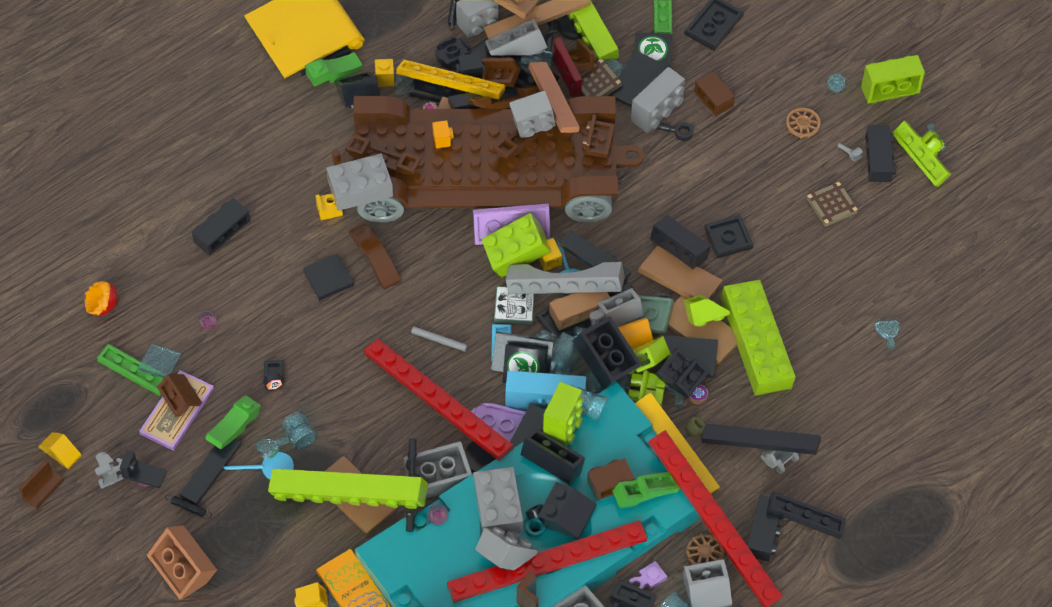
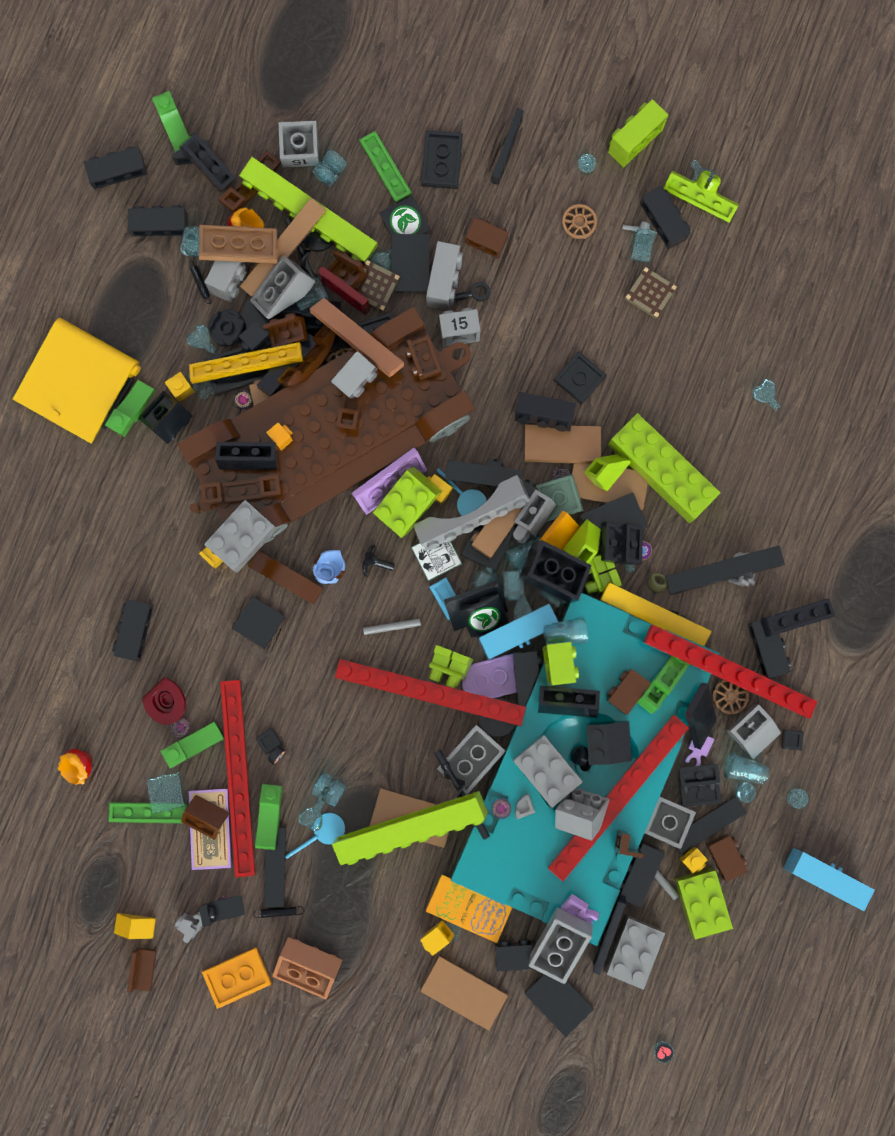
camera: 30 degrees left, 25 degrees up
(116, 538) = (236, 977): none -> light orange tile
(207, 337) = (192, 745): none -> bright green slope
(209, 291) = (165, 702): none -> dark red hat
(227, 383) = (237, 778): none -> red plate
(405, 132) = (247, 455): none -> black brick
(417, 262) = (329, 567): none -> light blue hair
(425, 50) = (201, 339): none -> clear light blue rock
(454, 276) = (371, 559): none -> black plant
(458, 524) = (524, 807): none -> light grey tile
(470, 389) = (450, 663): none -> lime hips
(650, 139) = (459, 326): none -> light grey brick
(664, 538) = (701, 715): none -> black tile
(775, 38) = (507, 147): none -> black tile
(848, 163) = (643, 245): none -> clear light blue bracket

